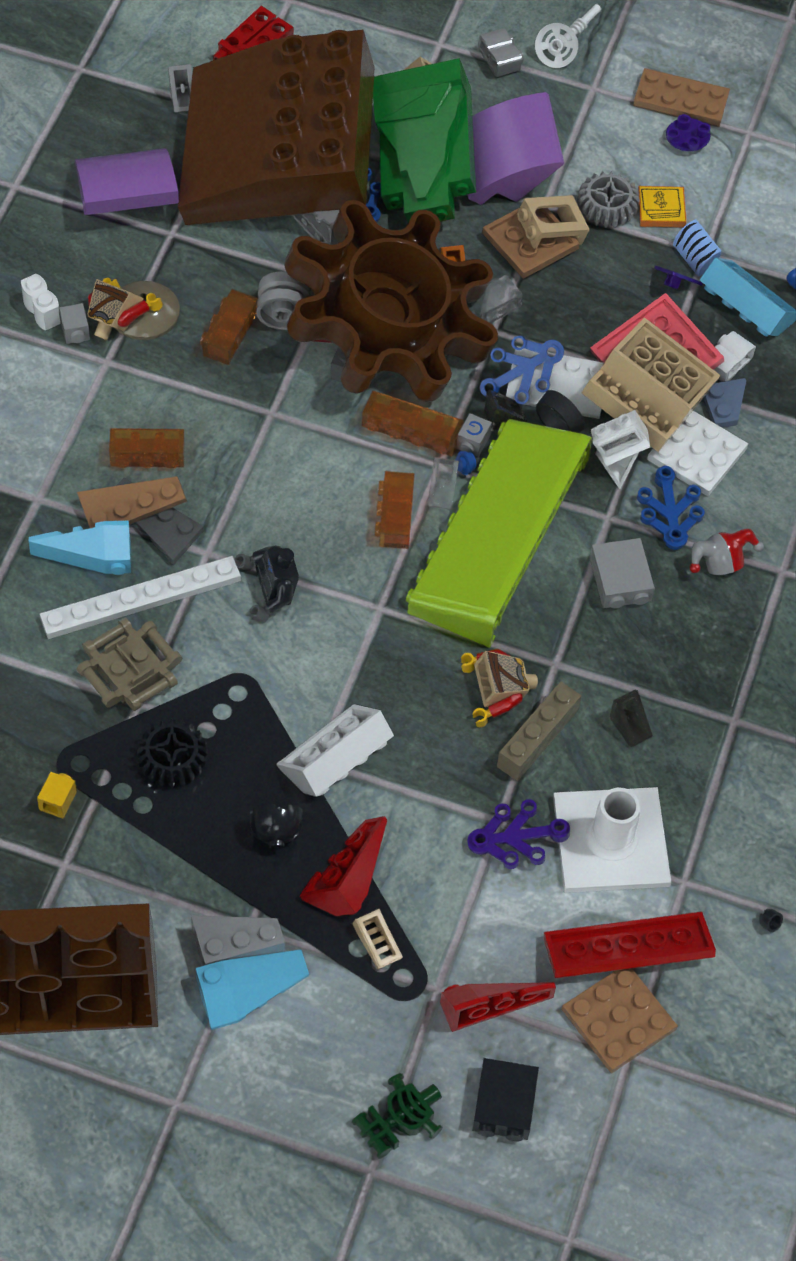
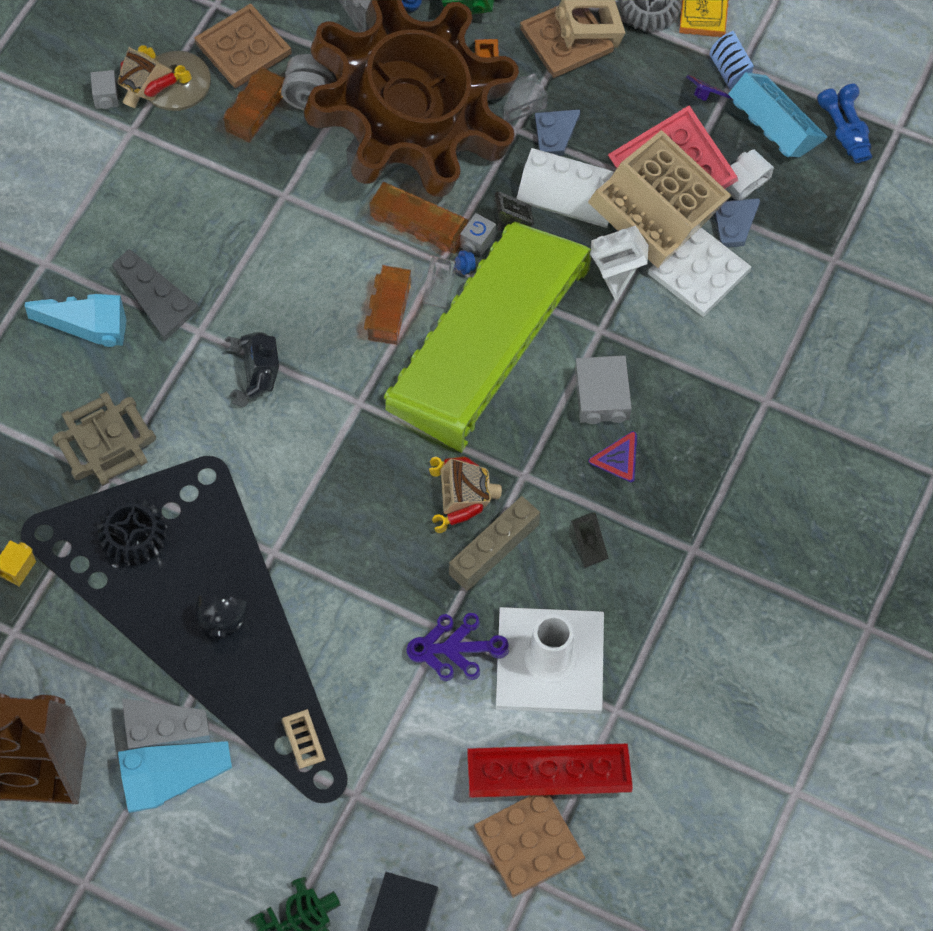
camera: 10 degrees right, 5 degrees up
(40, 302) = (74, 64): white brick -> none
(131, 501) = (130, 274): medium nougat wing -> none
(140, 597) = (126, 371): white plate -> none
(146, 448) = (155, 221): clear orange brick -> none
(207, 270) = (242, 45): none -> medium nougat plate
(336, 749) = (292, 543): white slope -> none
(350, 872) = (282, 675): red wedge -> none
(480, 1002) = (391, 813): red wedge -> none
(526, 366) = (537, 169): blue plant -> none
(533, 324) = (555, 130): none -> sand blue wing
(564, 408) = (564, 220): black tyre -> none
(648, 638) = (618, 458): none -> piece
(670, 510) = (662, 328): blue plant -> none
(723, 551) = (707, 376): piece -> none
(771, 920) = (700, 762): black hinge -> none

